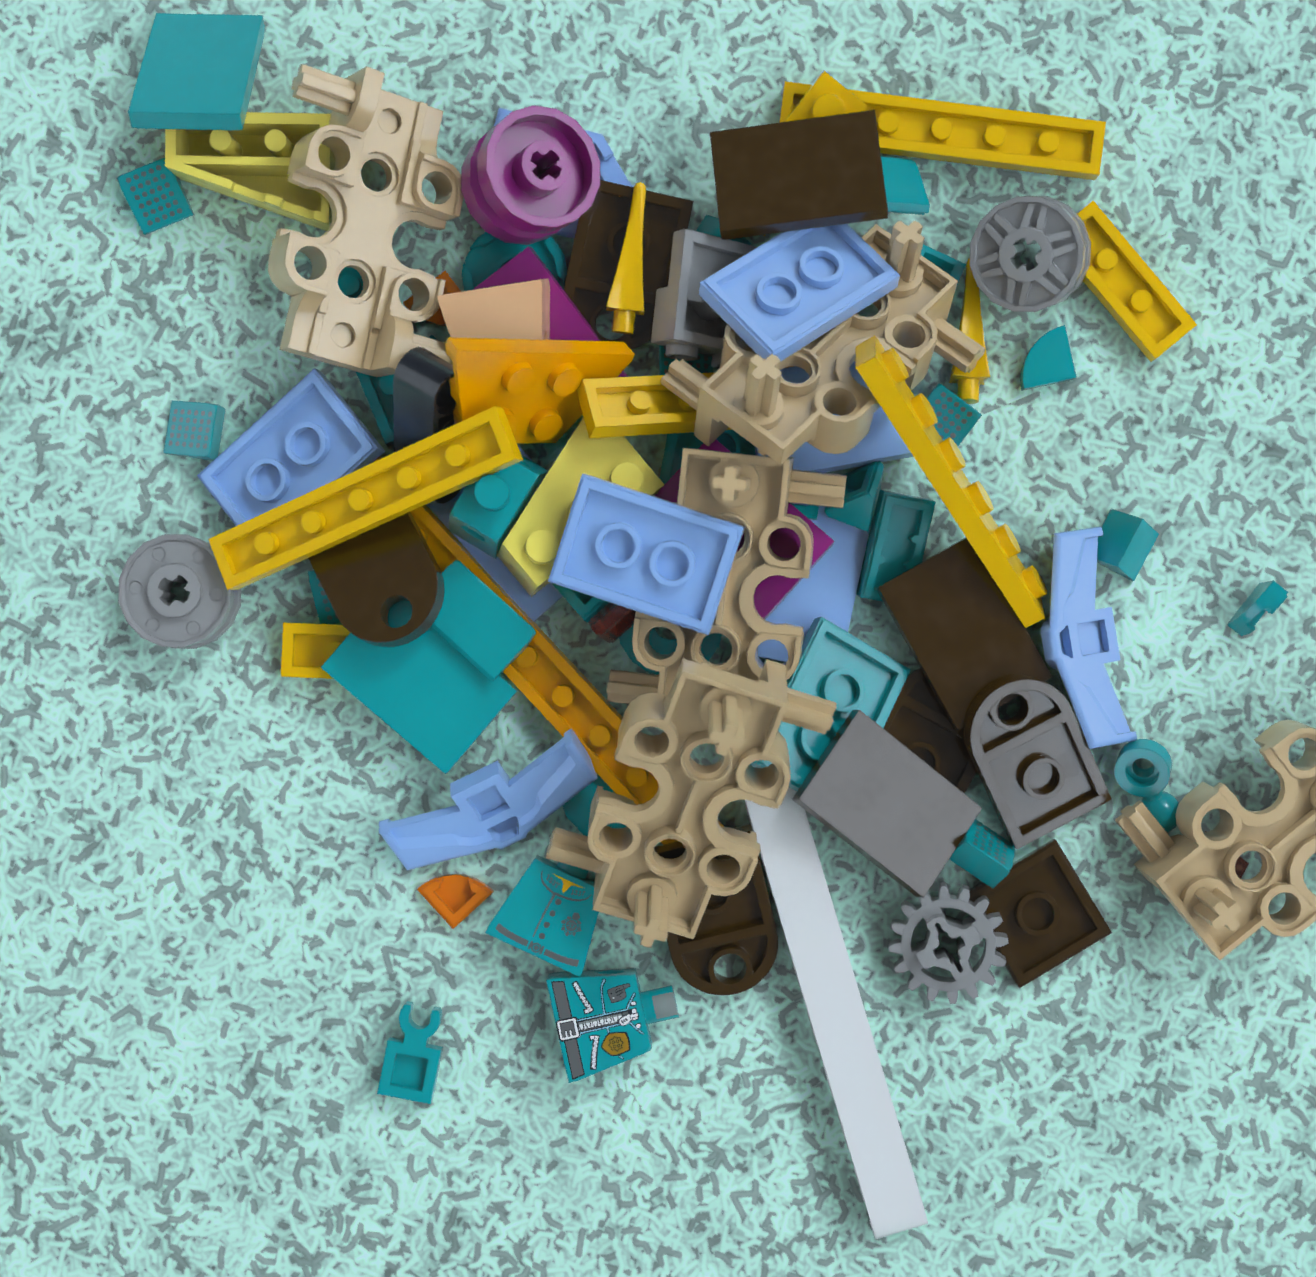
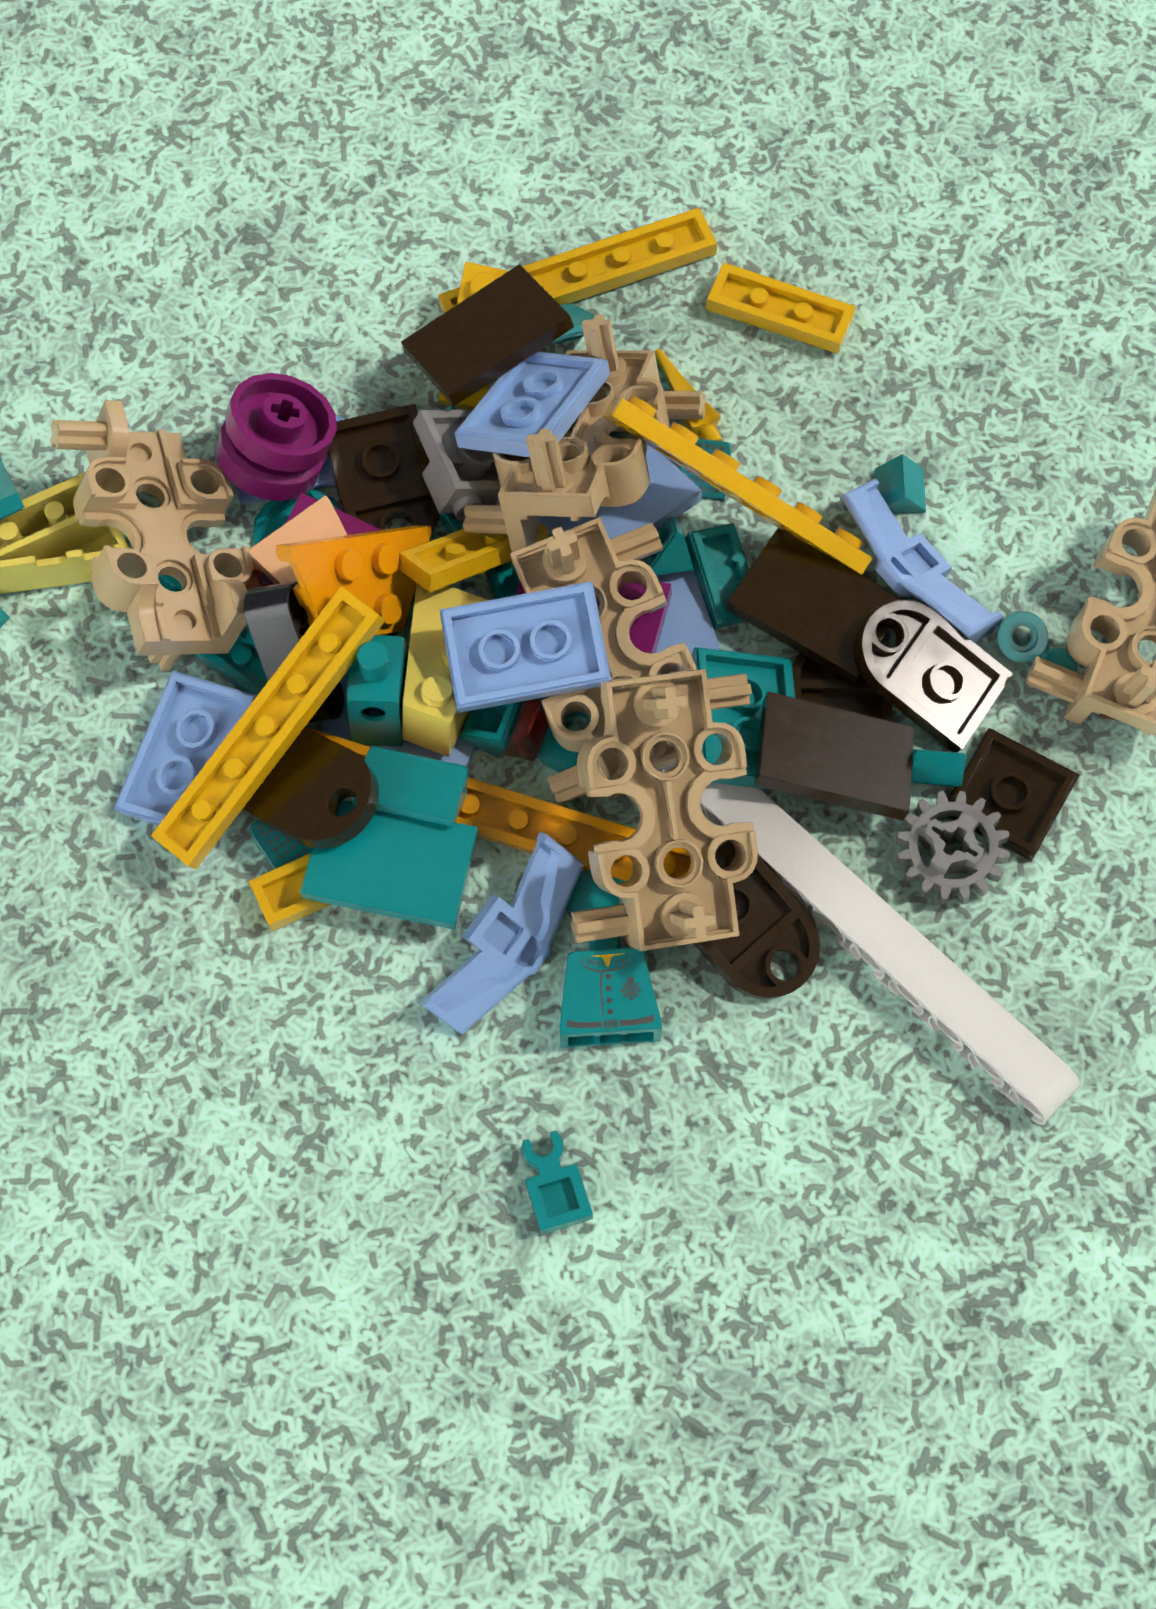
camera: 30 degrees left, 20 degrees down
(148, 598) = (163, 925): light grey wheel -> none
(194, 430) = (92, 775): teal slope -> none
(455, 896) = (516, 1034): orange tile -> none
(605, 1017) = (702, 1059): torso -> none
(626, 293) = (398, 487): yellow piece -> none
(999, 244) = (690, 288): light grey wheel -> none
(1048, 361) = (760, 390): teal tile -> none
(1264, 598) = (1031, 479): teal tile -> none

